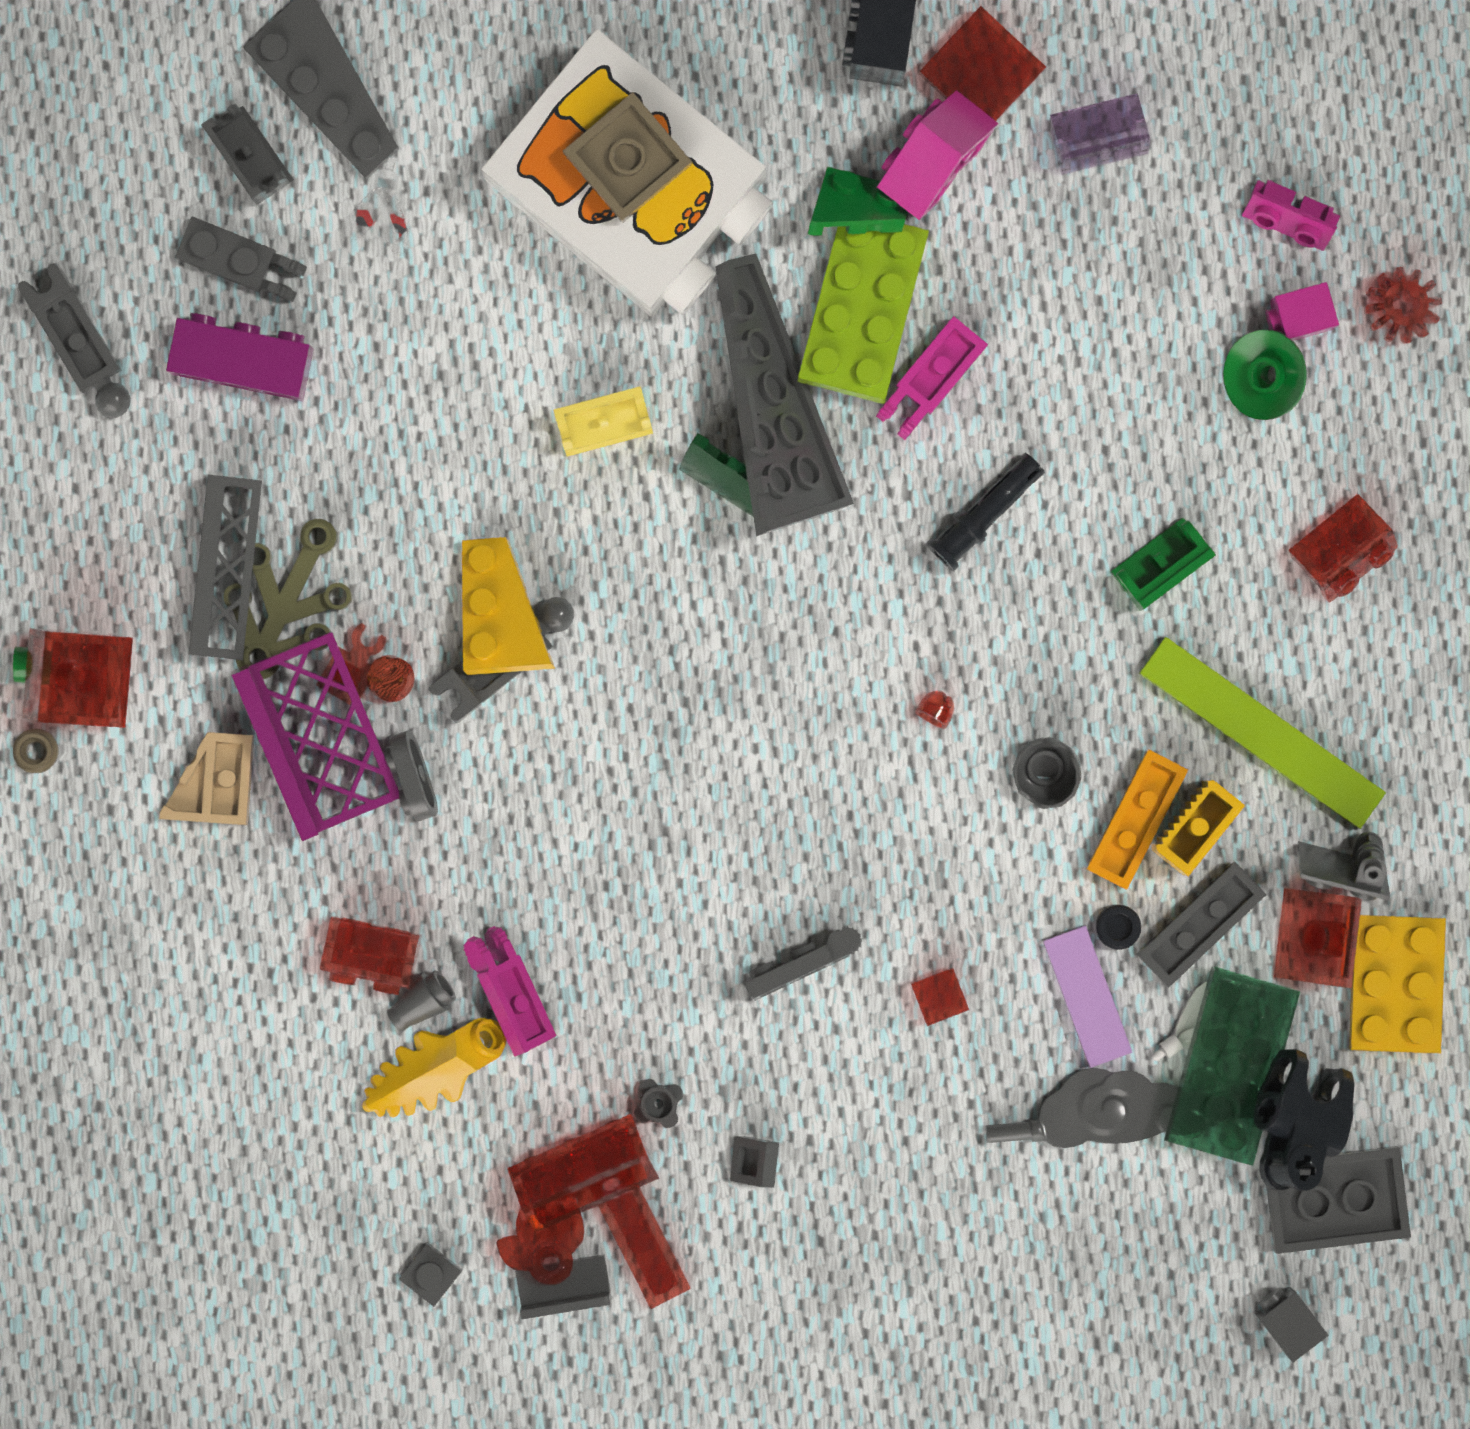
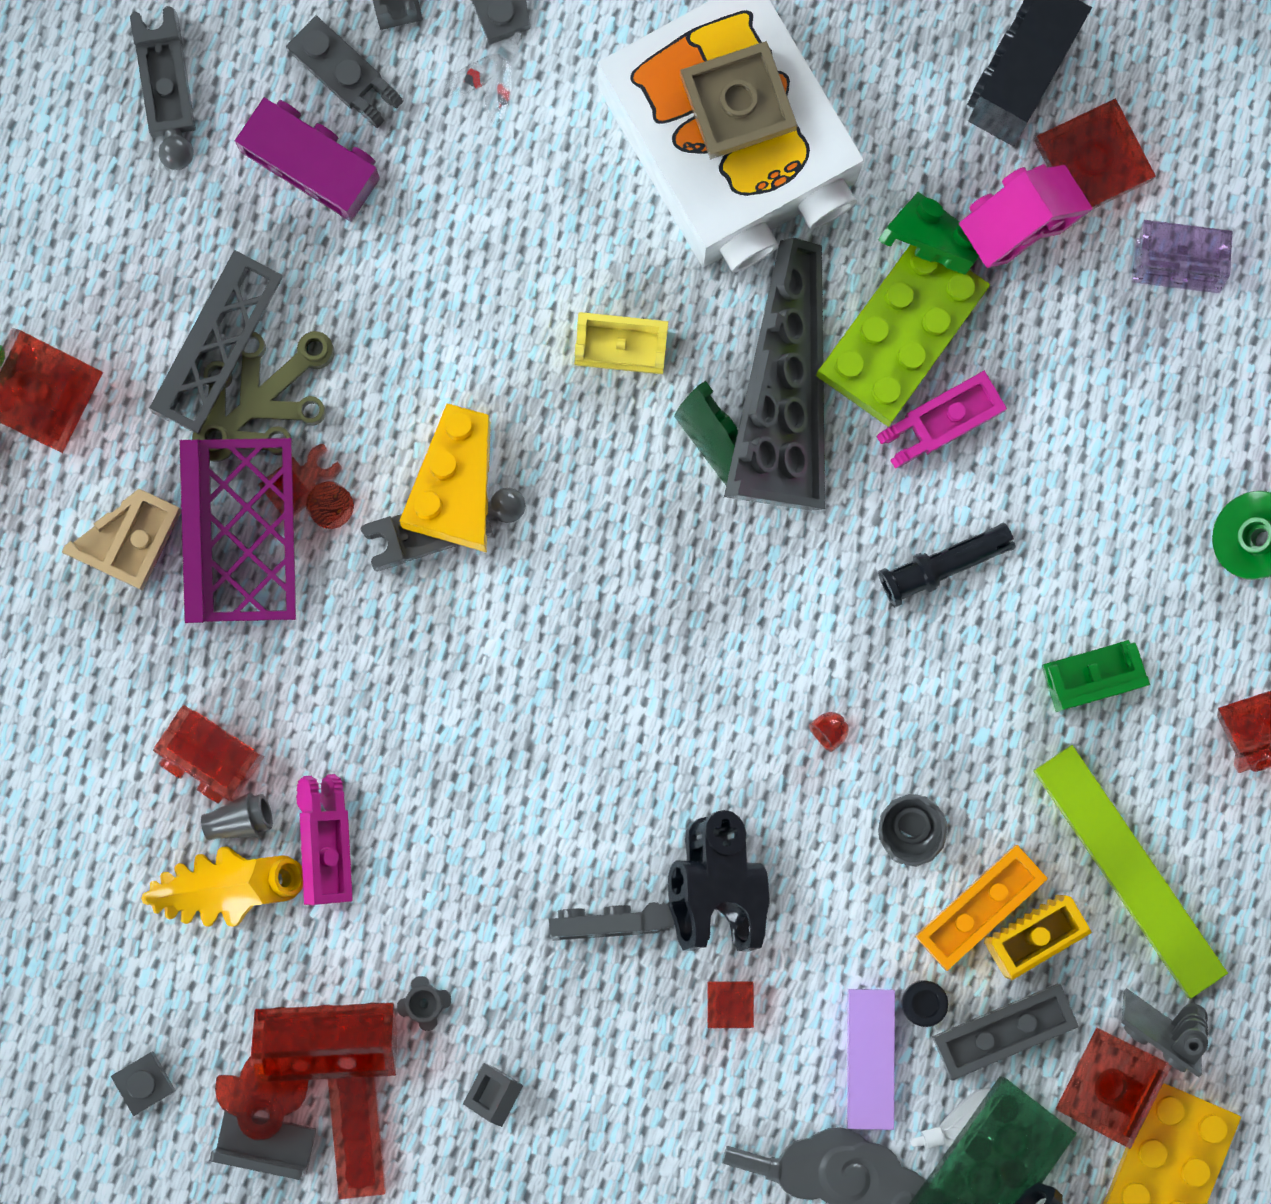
camera: 15 degrees right, 5 degrees down
(417, 791) = (315, 587): dark grey plate -> none
(884, 887) = (719, 880): none -> black piece

